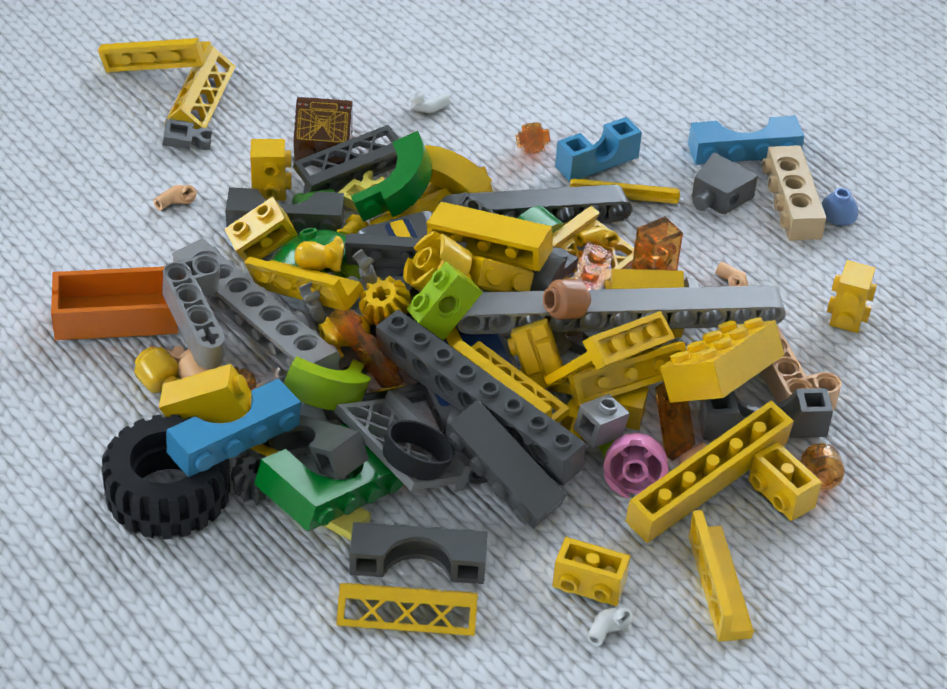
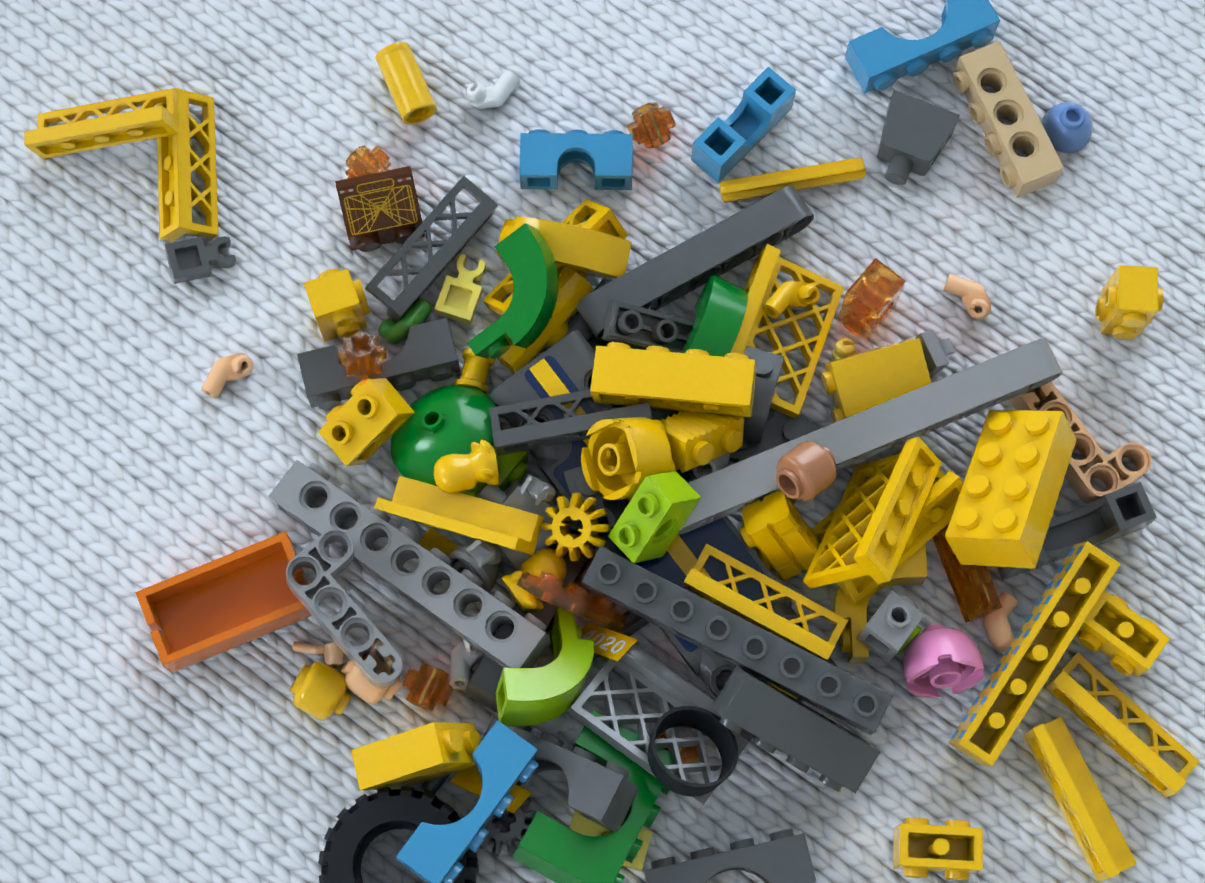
camera: 15 degrees left, 30 degrees up
(274, 186) = (362, 355): none -> clear orange gear
(370, 83) = (406, 83): none -> yellow pin
(494, 146) = (547, 153): none -> dark azure arch
(593, 266) = (800, 372): clear orange plate -> none
(769, 545) = (1116, 732): none -> yellow fence
(825, 464) = (1155, 589): clear orange head -> none

